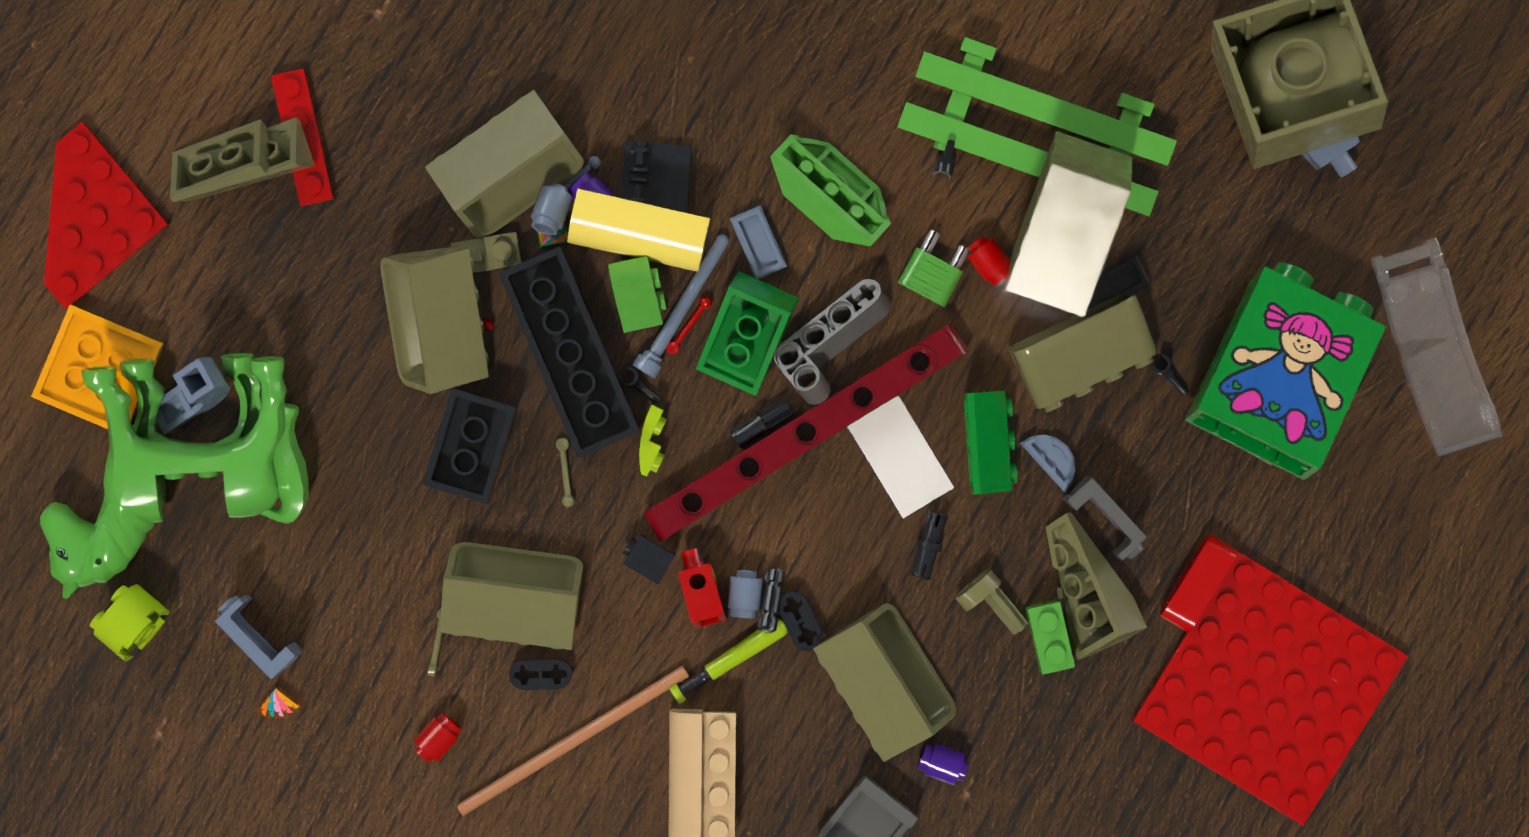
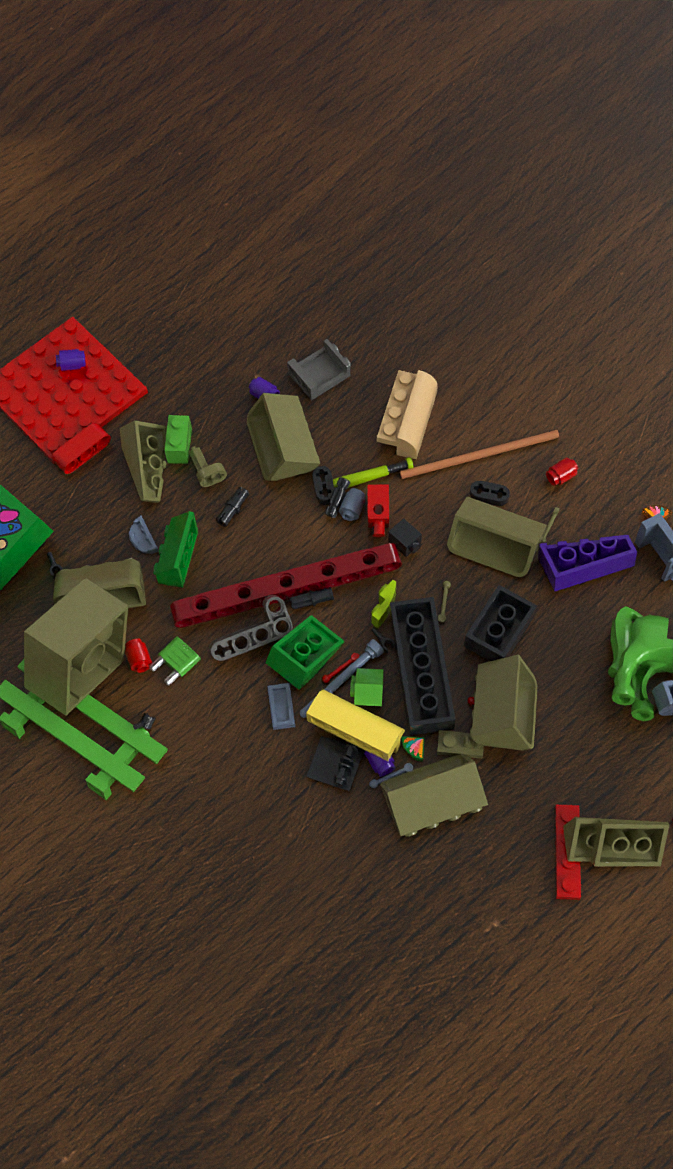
camera: 160 degrees left, 25 degrees down
(377, 584) = (585, 560): none -> dark purple wedge
(551, 209) = (409, 756): sand blue brick -> none
(830, 190) = (222, 719): bright green wedge -> none
(900, 457) = (232, 557): white sticker -> none
(1089, 489) = (128, 503): dark grey panel -> none
(1269, 731) = (70, 359): none -> dark purple brick

